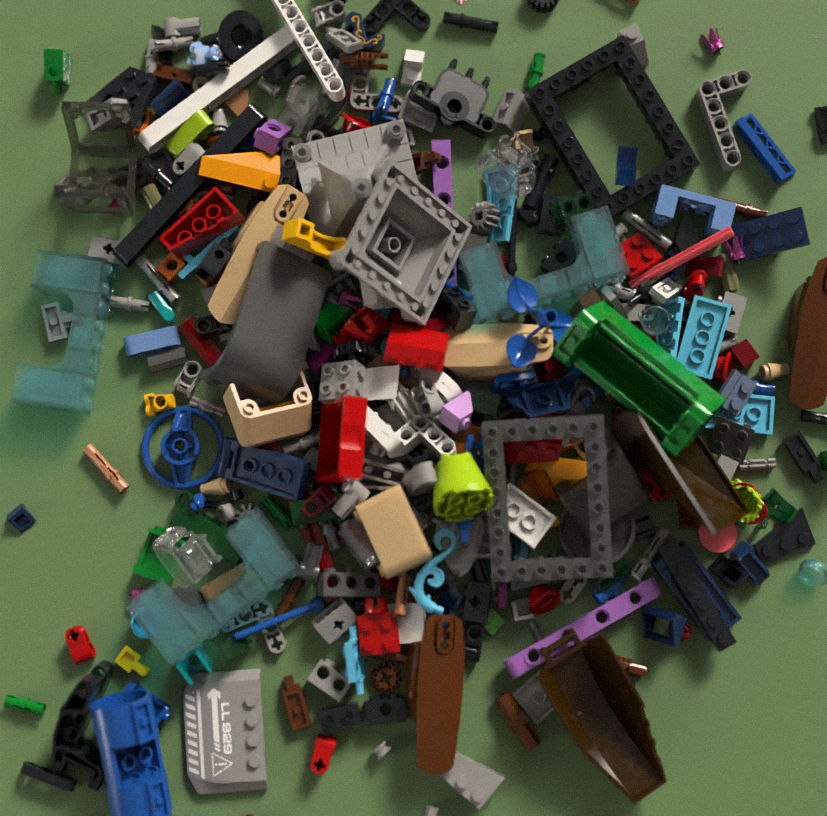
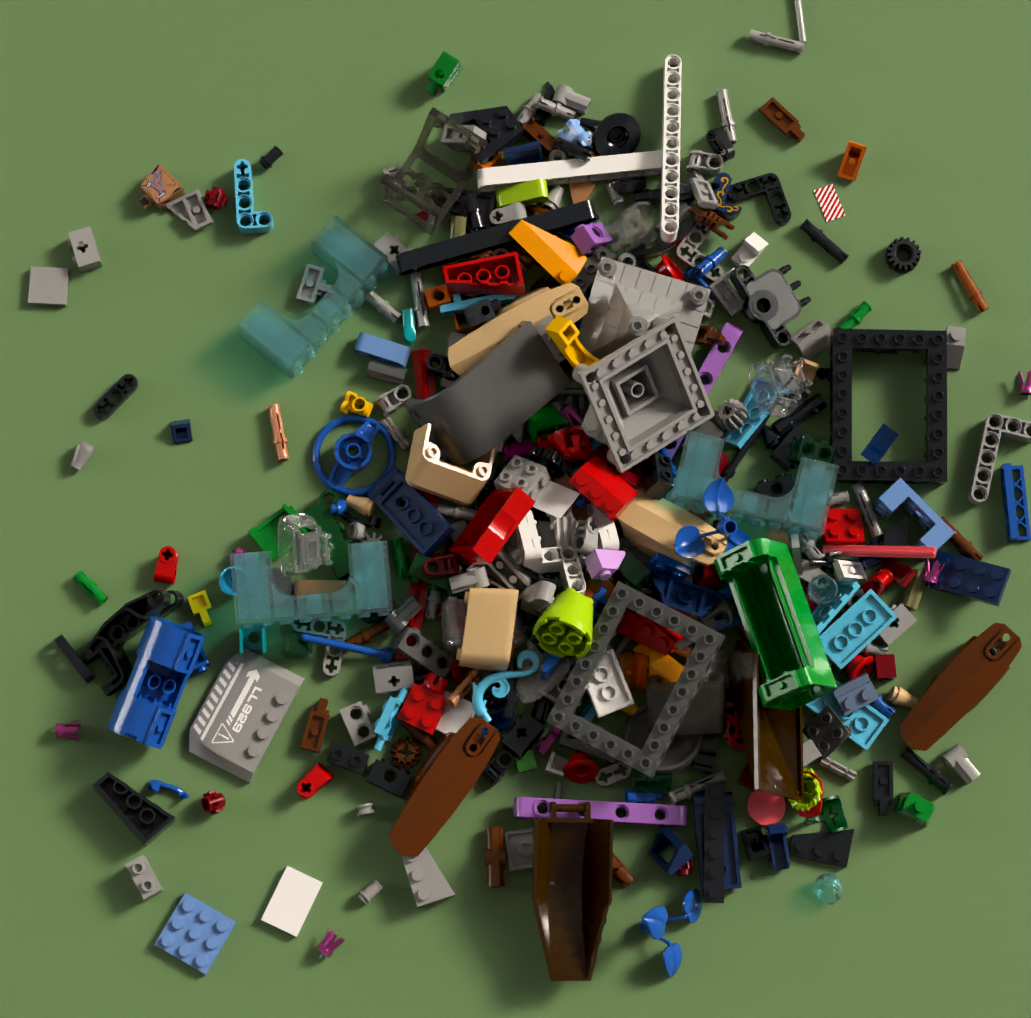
camera: 25 degrees right, 5 degrees down
(693, 698) = (654, 924): none -> blue plant

